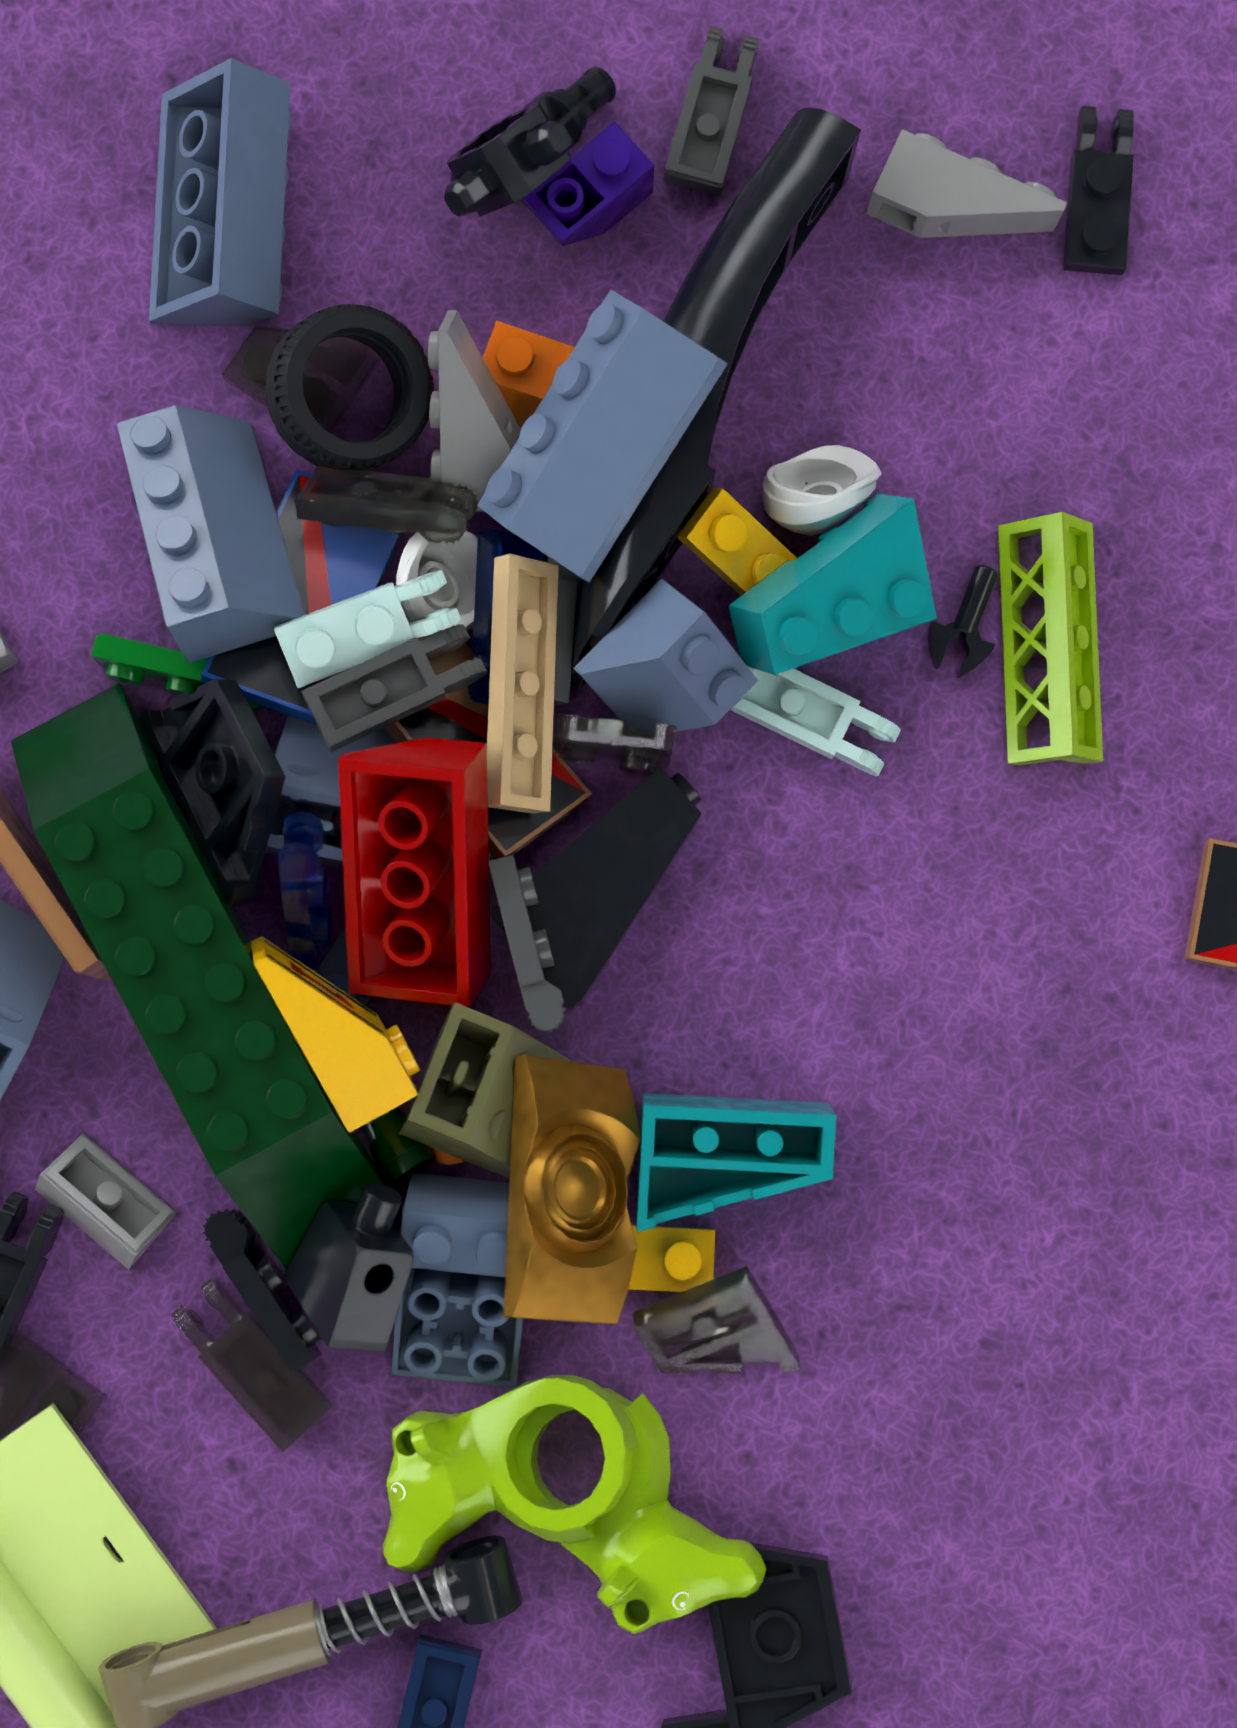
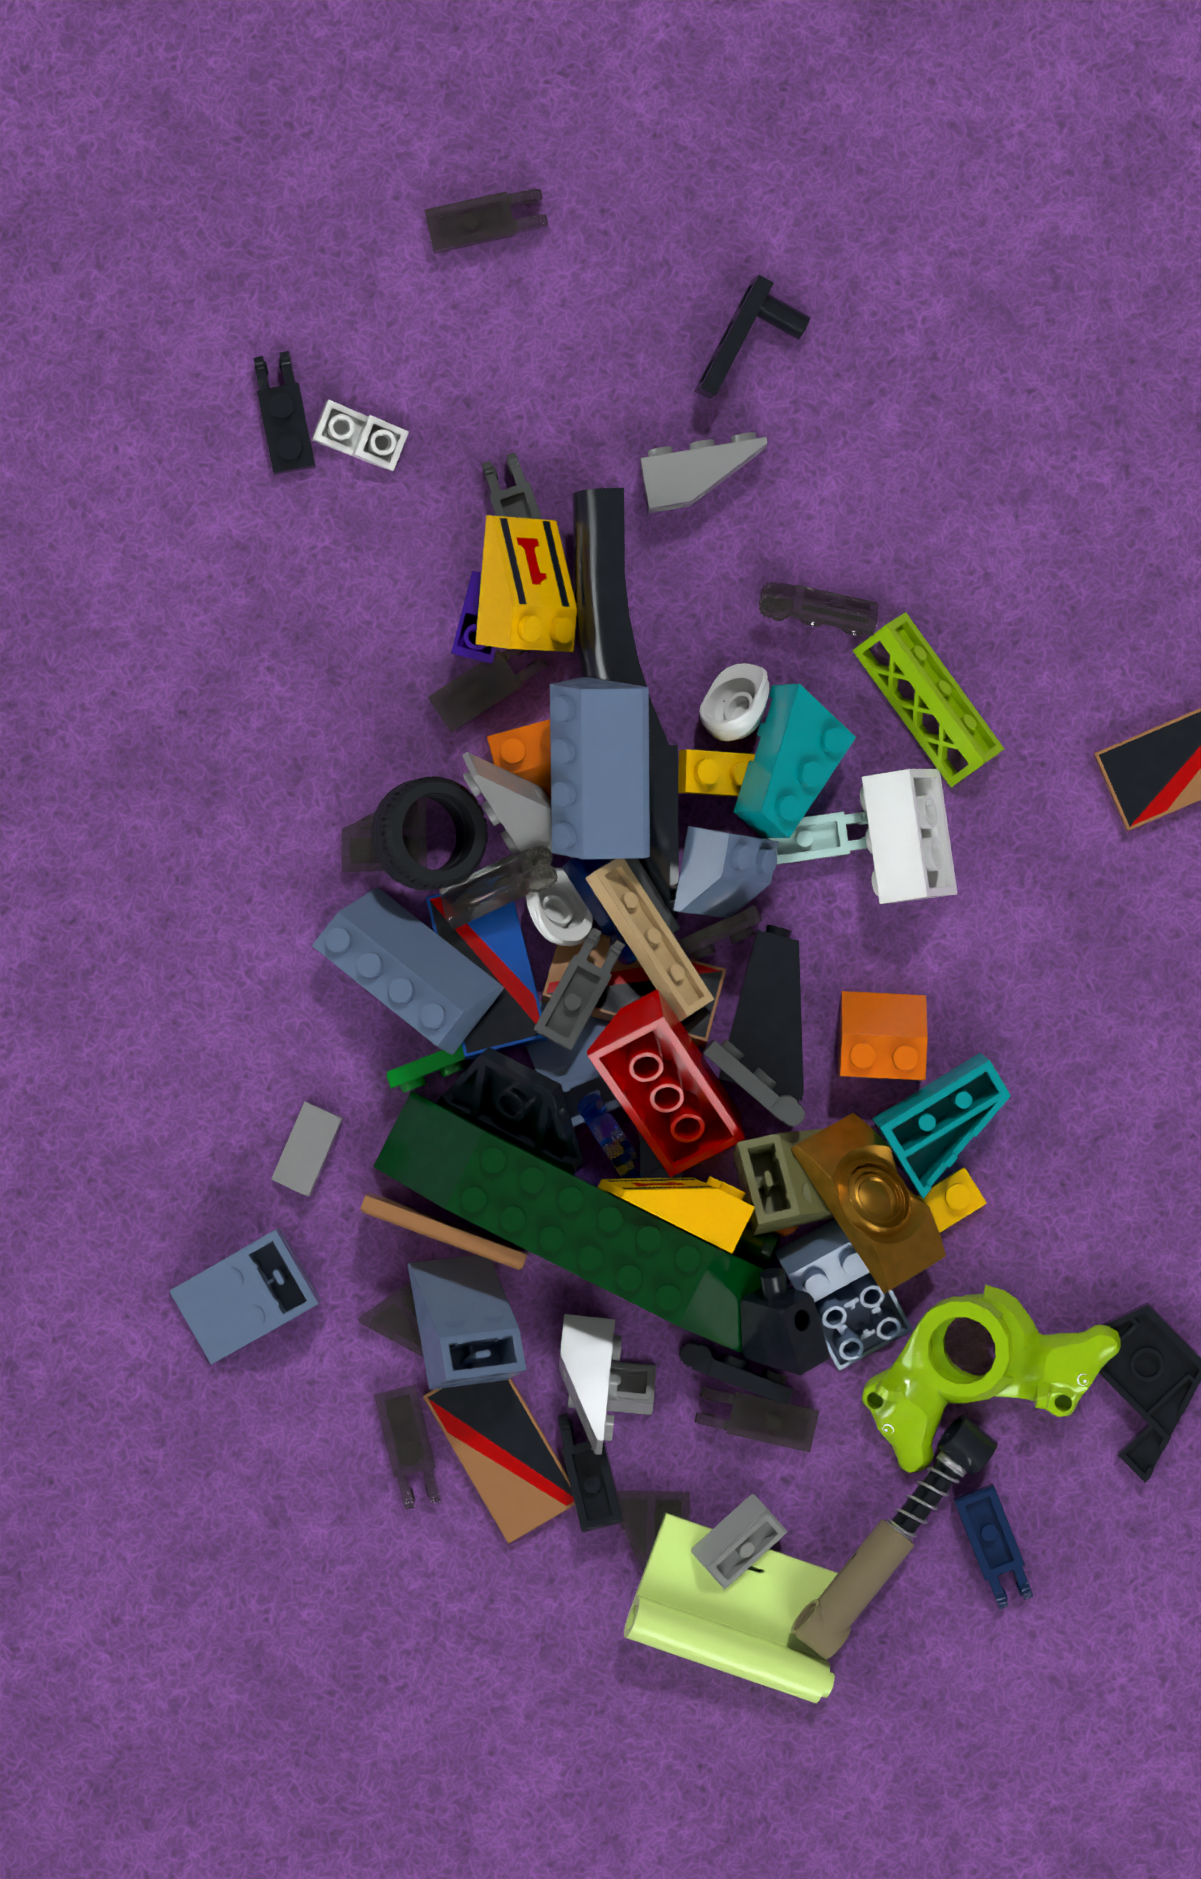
camera: 30 degrees left, 5 degrees up
(87, 1150) = (585, 1367): none -> slope
(115, 1503) = (738, 1541): none -> light grey slope
(220, 198) = (268, 769): sand blue slope -> none
(359, 629) = (539, 969): light aqua hinge -> none
(524, 147) = (431, 625): black piece -> none
(536, 274) = (482, 688): none -> clear smoke hinge
(661, 175) = (525, 587): none -> yellow slope
(715, 1328) = (1002, 1221): clear smoke wing -> none
(724, 1002) = (883, 1035): none -> orange slope
(920, 778) = (908, 835): none -> white slope
(966, 623) = (872, 721): black bar -> none
(992, 445) = (818, 607): none -> clear smoke hinge
(1099, 197) = (779, 411): black hinge -> none
(1154, 54) = (754, 303): none -> black piece

